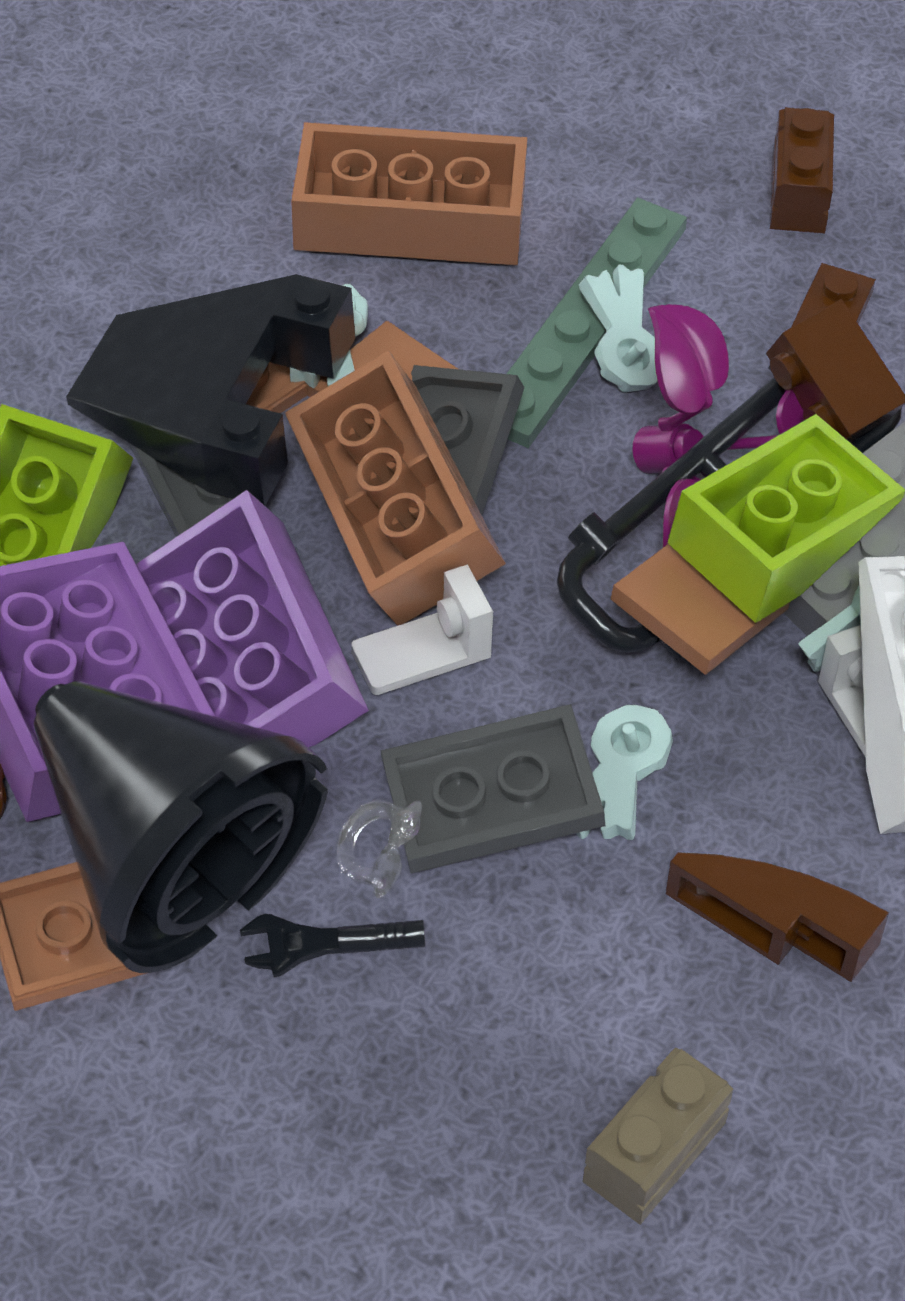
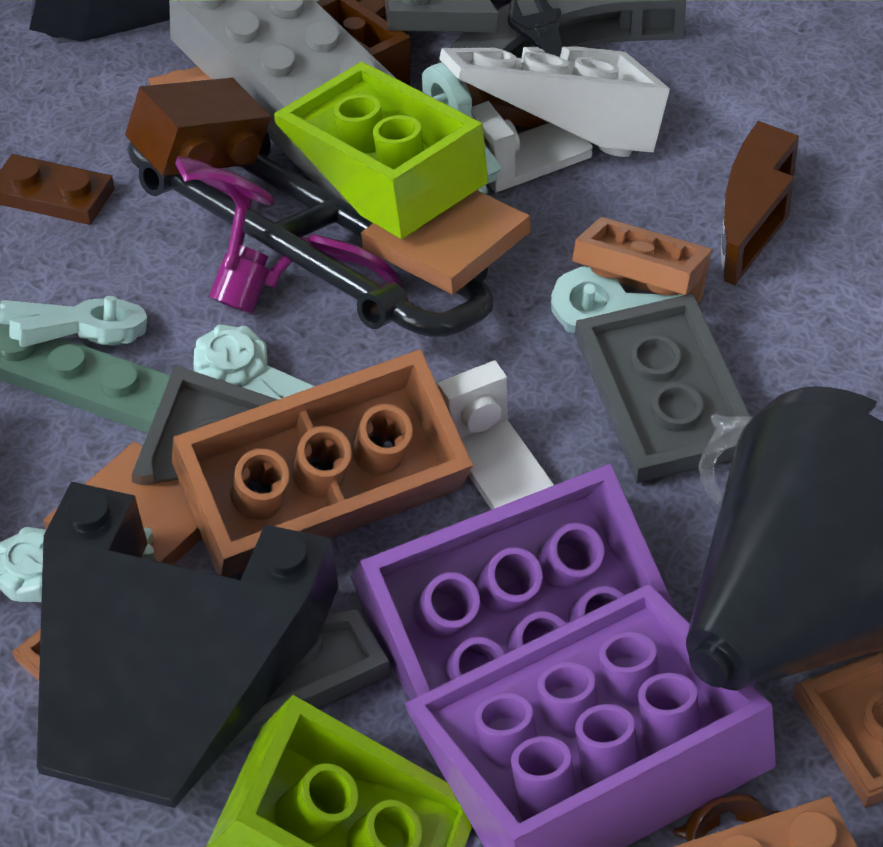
camera: 90 degrees left, 5 degrees down
(563, 451) = (242, 360): none -> light aqua piece
(664, 775) = (643, 258): none -> nougat bracket

